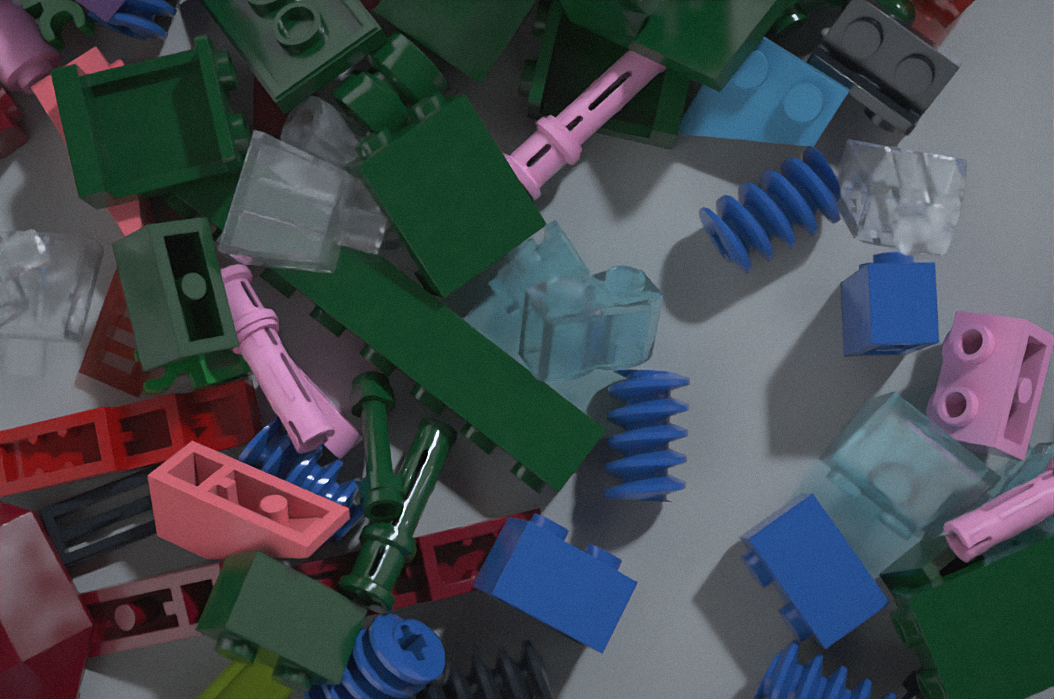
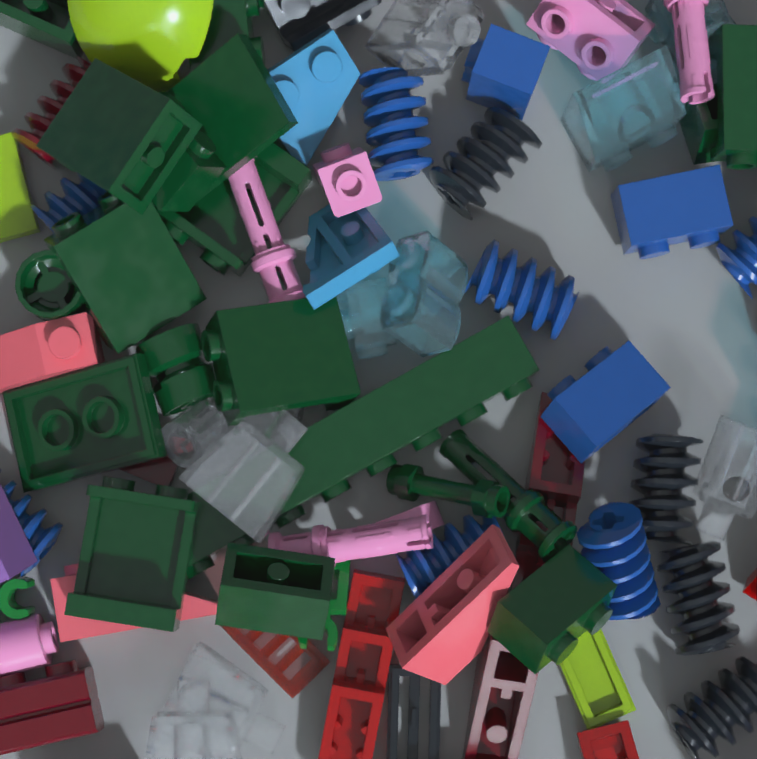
camera: 70 degrees left, 0 degrees up
(602, 211) = (343, 252): none -> dark azure wing
(684, 182) = (347, 179): none -> bright pink bracket
(777, 328) = (481, 159): none -> black piece

